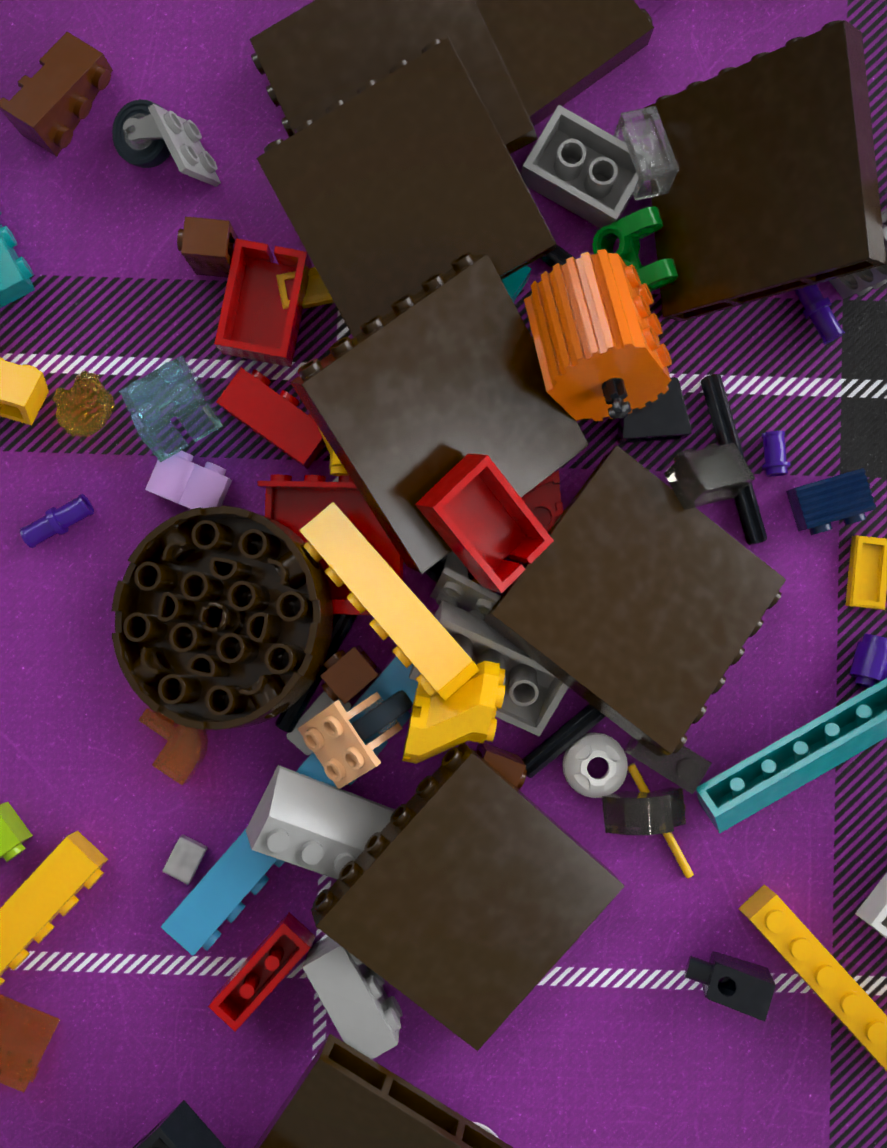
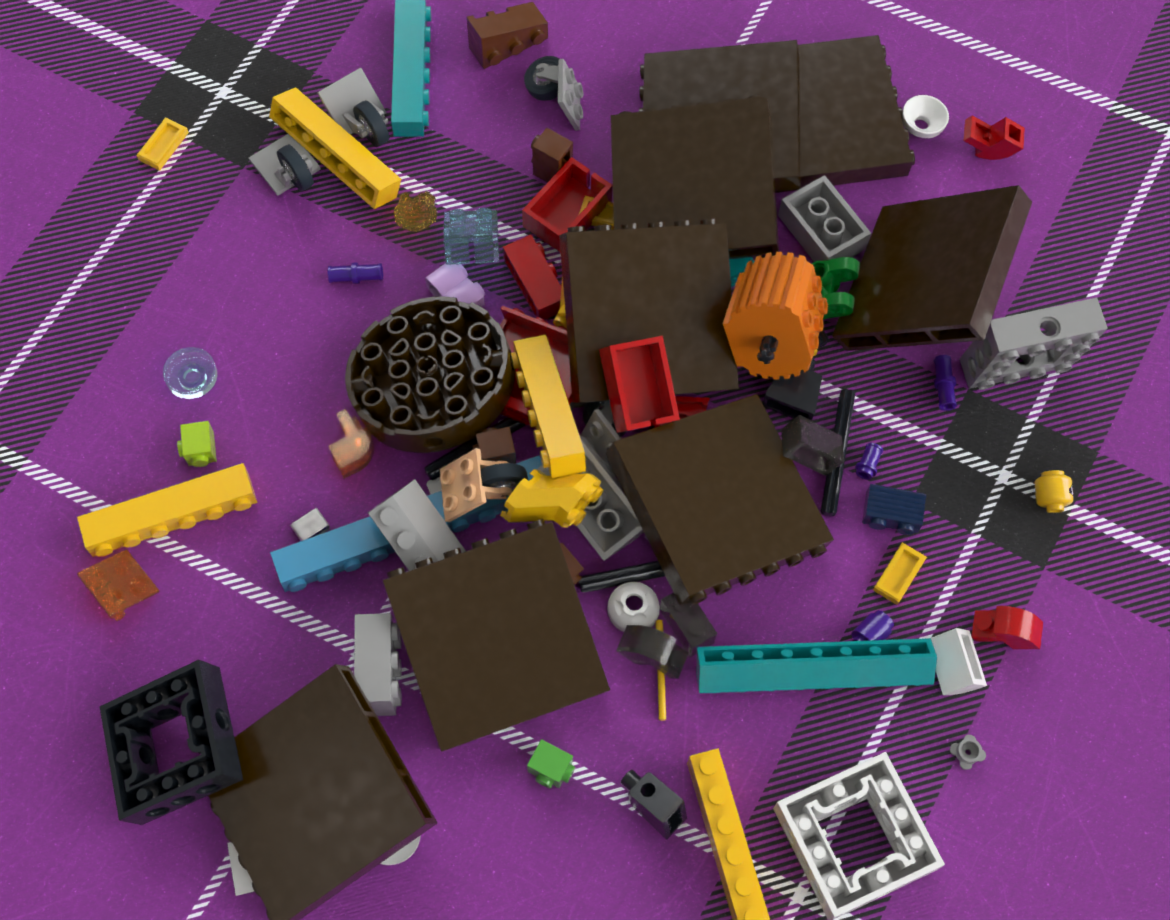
camera: 30 degrees right, 20 degrees down
(262, 971) = (319, 619): red brick -> none
(599, 995) = (550, 765): none -> bright green brick
(649, 151) = (868, 227): clear panel -> none

